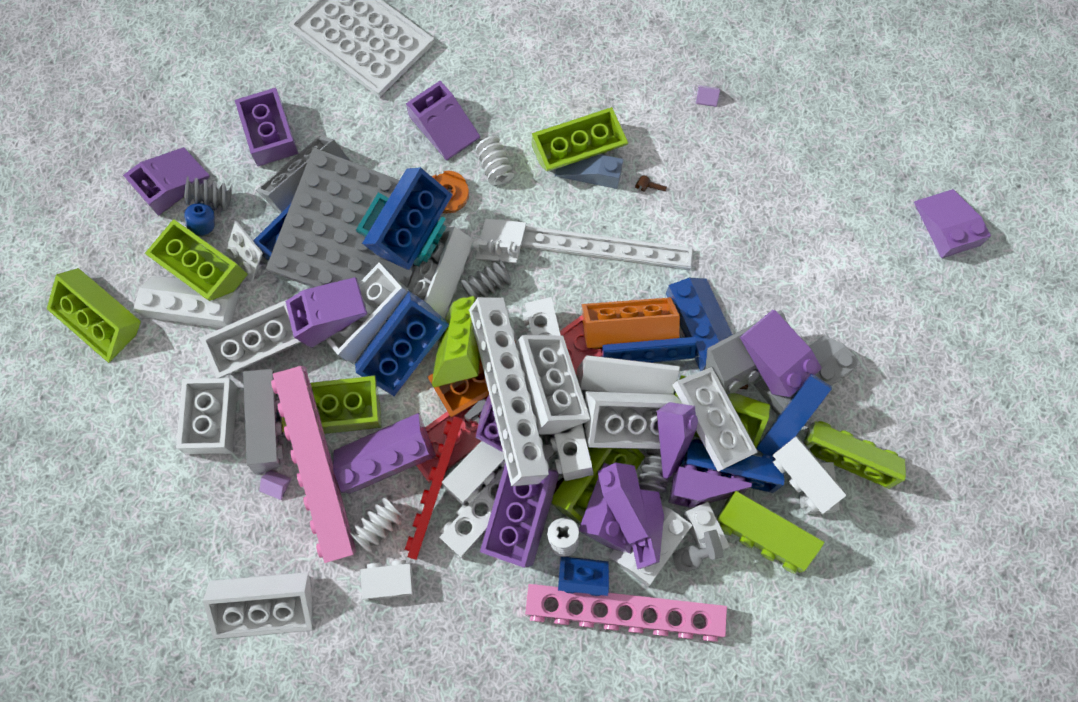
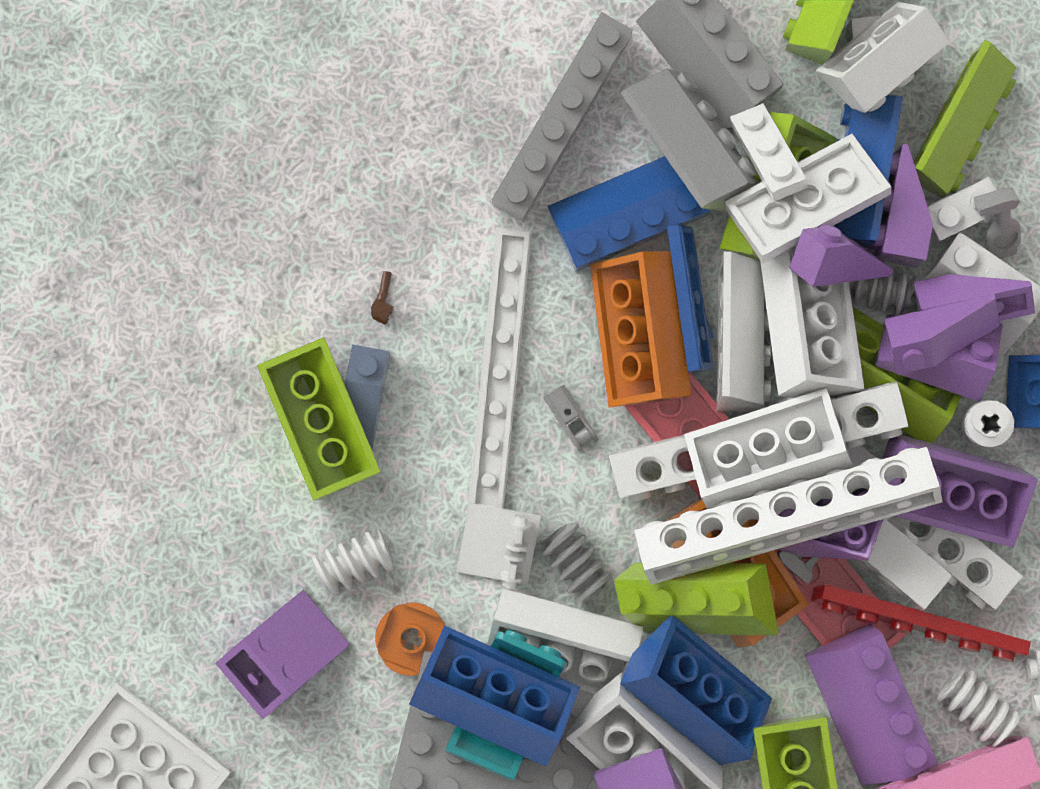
camera: 85 degrees left, 15 degrees up
(578, 283) = (566, 412): none -> light grey bar
(707, 95) = (206, 200): lavender slope -> none
(743, 398) = (768, 152): none -> white plate
(762, 285) = (562, 117): none -> light grey brick
(780, 354) = (699, 95): medium lavender slope -> none
(794, 415) = (789, 75): blue tile -> none

